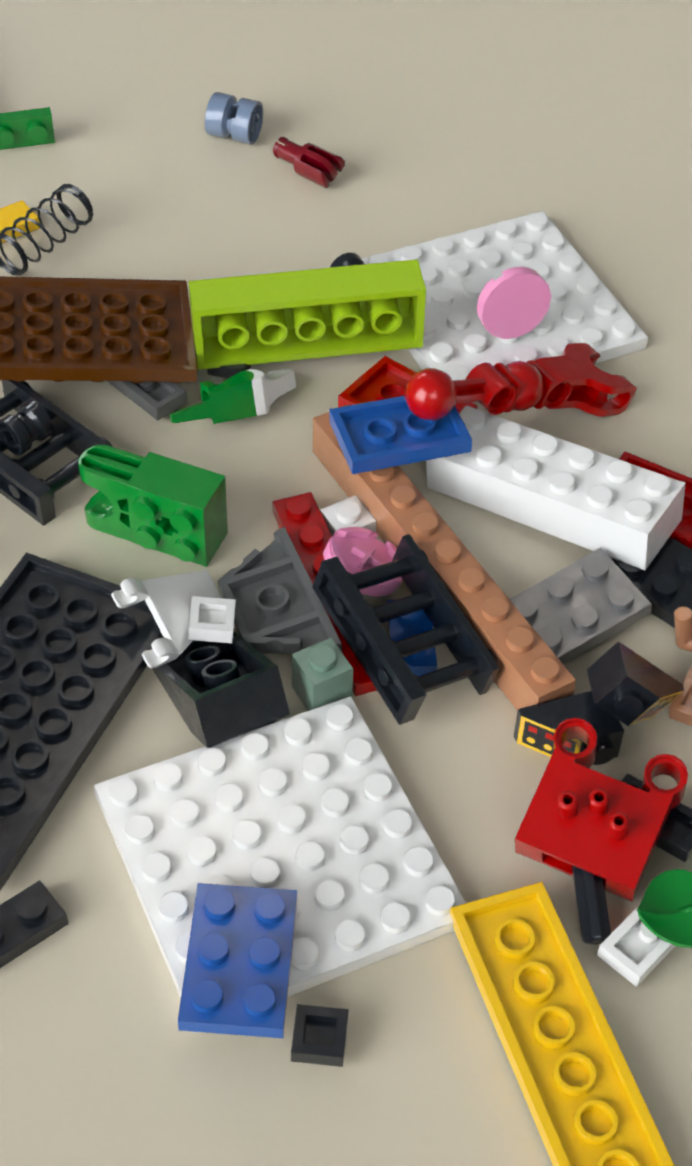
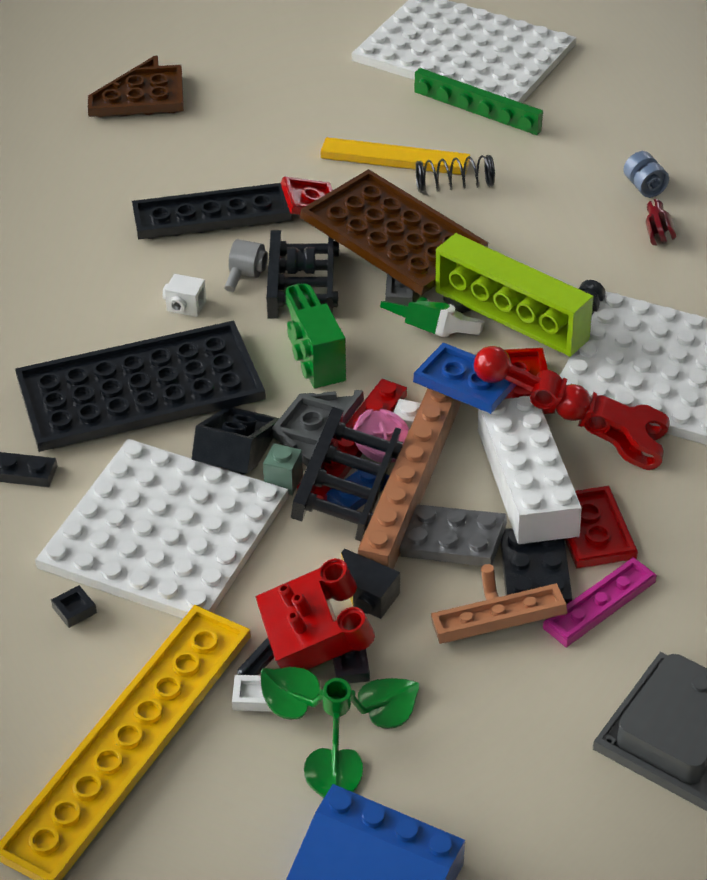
camera: 50 degrees right, 5 degrees down
(170, 605) = (261, 390): white flag -> none
(211, 619) = (266, 405): white plate -> none
(238, 961) = (78, 547): blue plate -> none
(513, 303) = (637, 360): bright pink tile -> none
(630, 685) = (412, 583): black slope -> none

